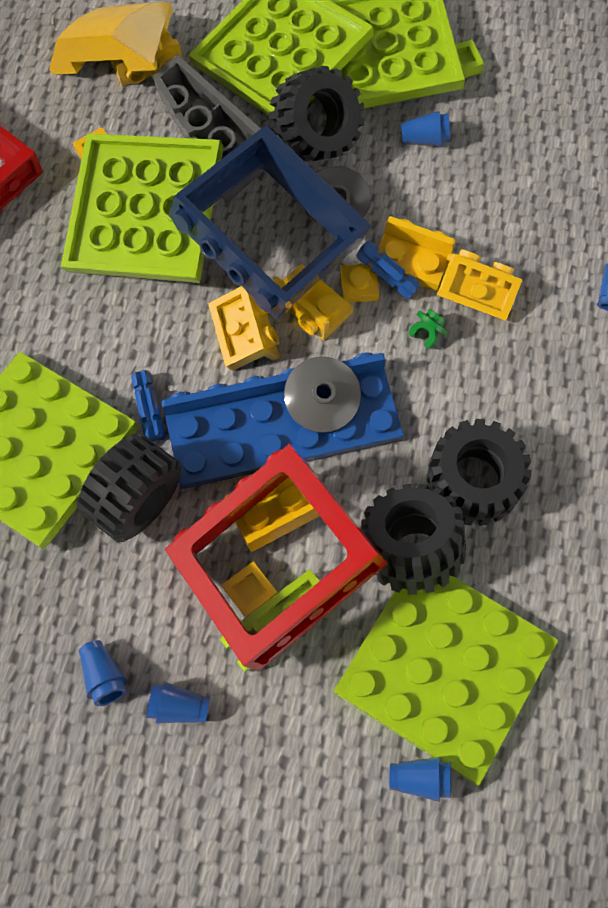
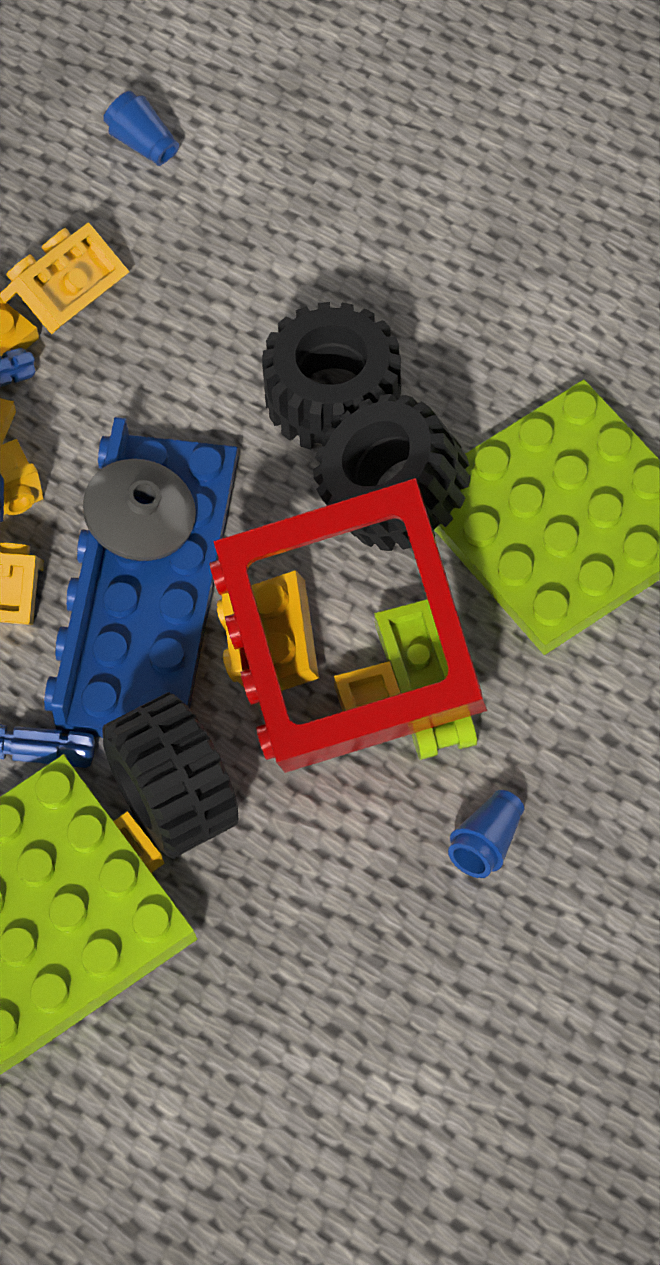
camera: 65 degrees left, 10 degrees down
(101, 674) = (409, 912): blue cone -> none
(433, 323) = (90, 353): green plate -> none

